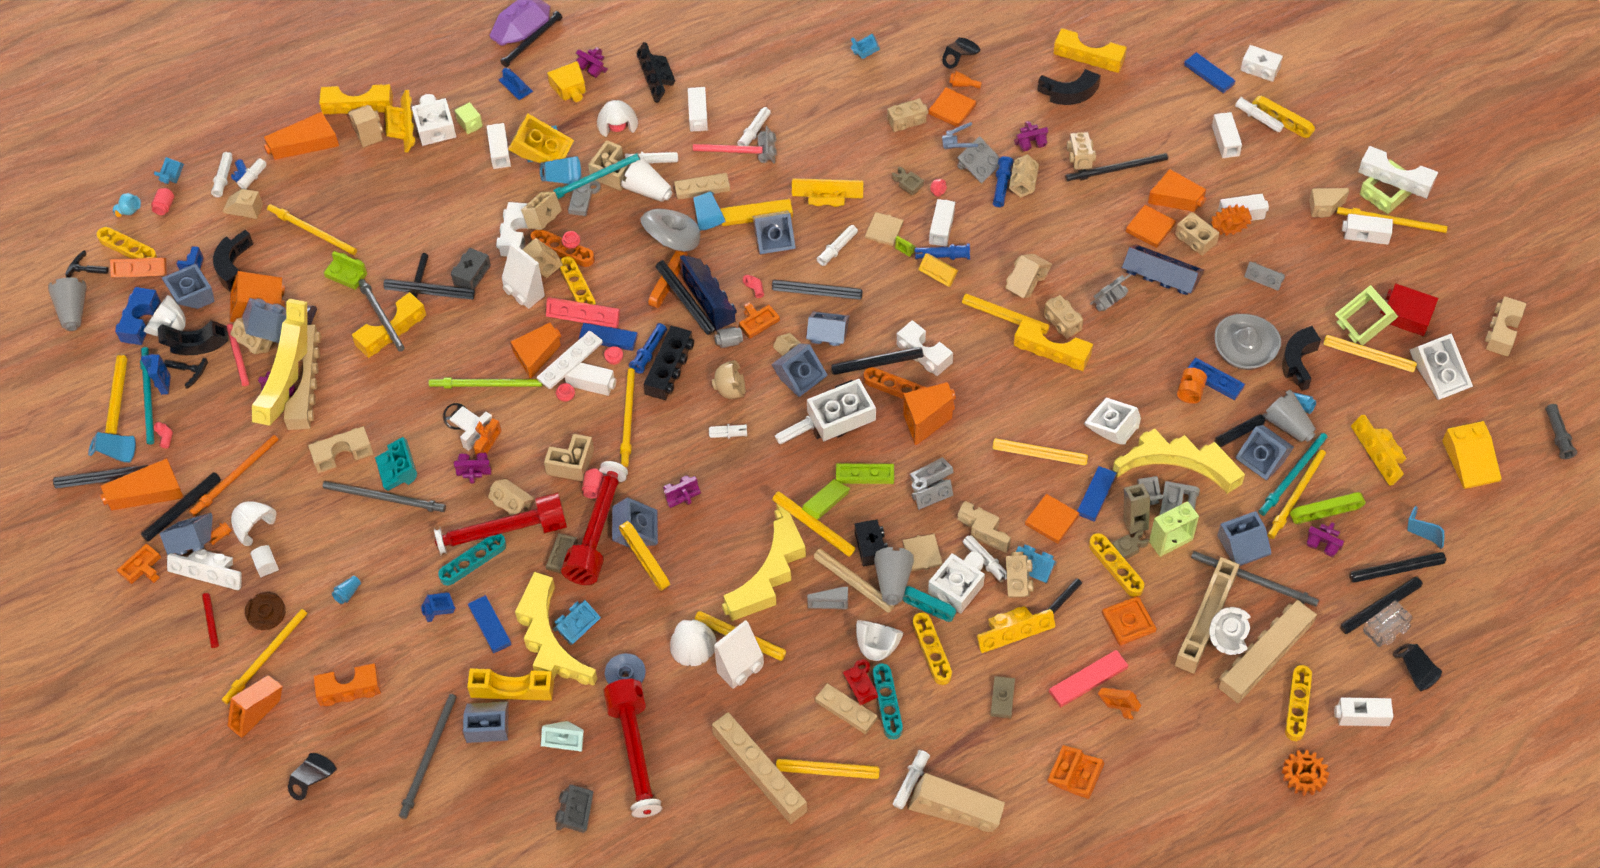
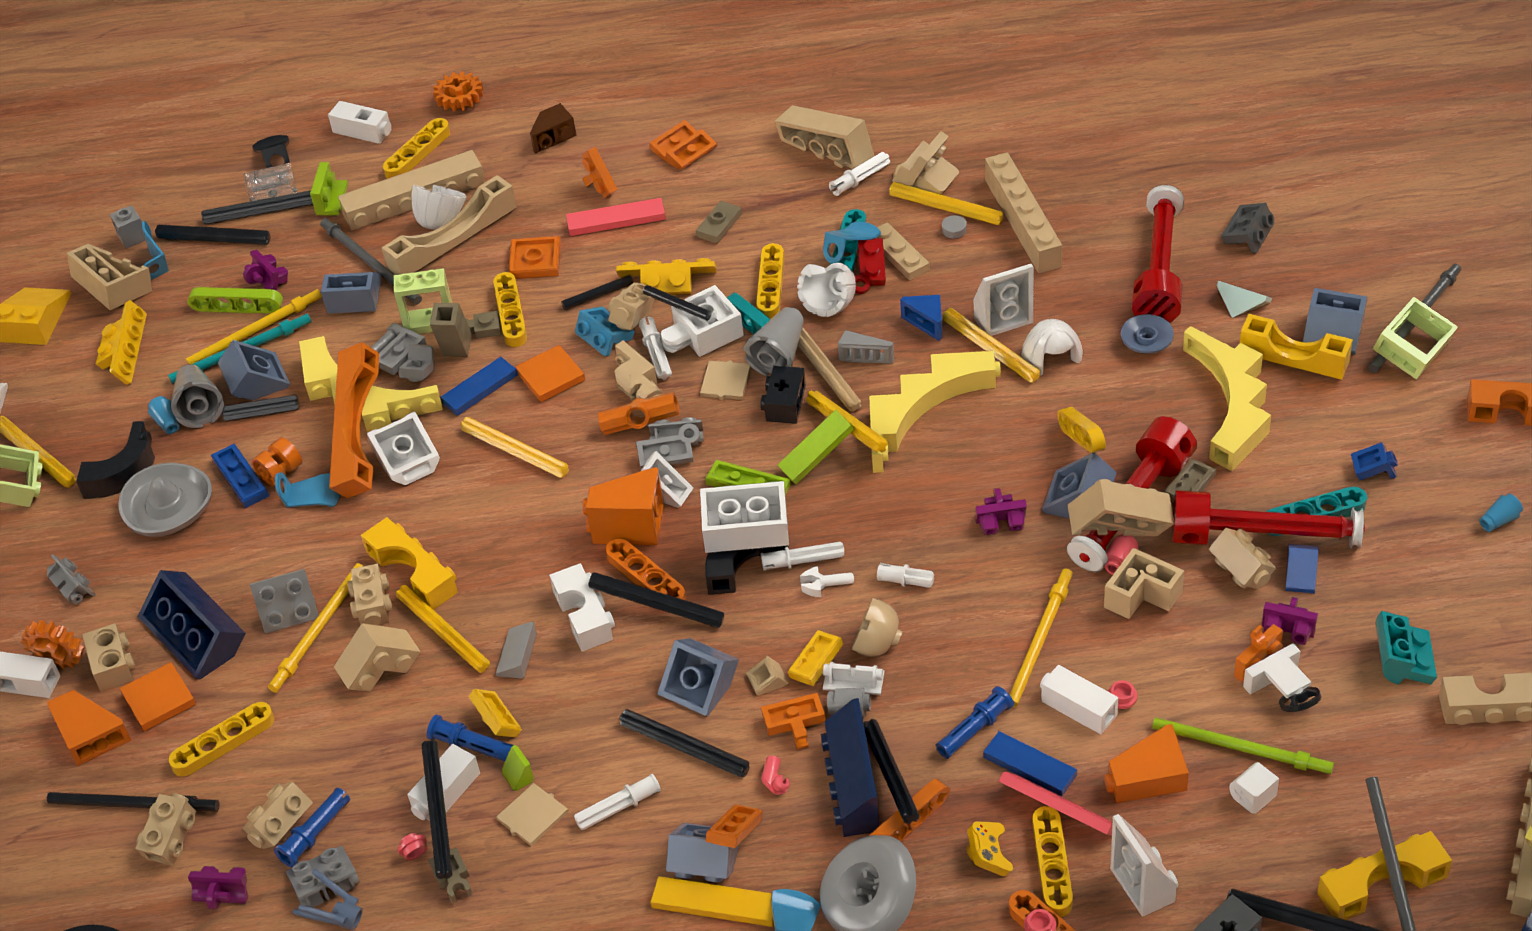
camera: 155 degrees left, 10 degrees down
(419, 700) = (1405, 354): none -> yellowish green window
(430, 505) = (1362, 592): dark grey bar -> none
(471, 354) = (1254, 788): none -> white piece
(472, 511) = (1301, 568): none -> blue slope
(489, 624) = (1308, 432): blue tile -> none
(544, 255) = (1101, 892): tan brick -> none
(569, 360) = (1104, 720): white bracket -> none
(576, 622) = (1195, 403): dark azure bracket -> none
(594, 484) = (1121, 508): none -> tan wedge
(613, 355) = (1031, 730): coral plate -> none
(616, 276) = (985, 848): none -> yellow piece
(675, 338) = (952, 688): black brick -> none
(738, 353) = (847, 677): none -> white hinge
(759, 237) = (734, 826): none -> orange tile
(761, 359) = (811, 661): none -> yellow plate
(781, 415) = (821, 581): none -> white bar
(798, 644) = (923, 313): none -> blue slope
(800, 369) = (769, 629): sand blue slope -> none
(811, 746) = (954, 227): none -> light grey tile
(827, 191) = (590, 885): yellow bracket -> none
(857, 790) = (927, 168): none -> tan piece
(883, 693) = (854, 231): none -> dark azure piece
(917, 449) = (674, 486): none -> white slope
(932, 196) = (436, 809): none -> black axle
(950, 314) = (517, 651): none -> light grey slope
(963, 491) = (654, 408): none -> orange piece
(979, 572) = (677, 302): none -> black bar
(1084, 264) = (289, 665): none -> yellow bar
(1089, 212) = (219, 735): none -> yellow beam
(1154, 381) = (306, 492): none -> dark azure piece
(1173, 440) = (356, 373): none -> orange arch
(1196, 754) = (552, 128): none -> reddish brown slope
(1333, 627) = (326, 191): none -> lime bracket
(1440, 493) = (106, 277): none -> tan wedge
(1465, 546) = (128, 226): none -> light grey brick

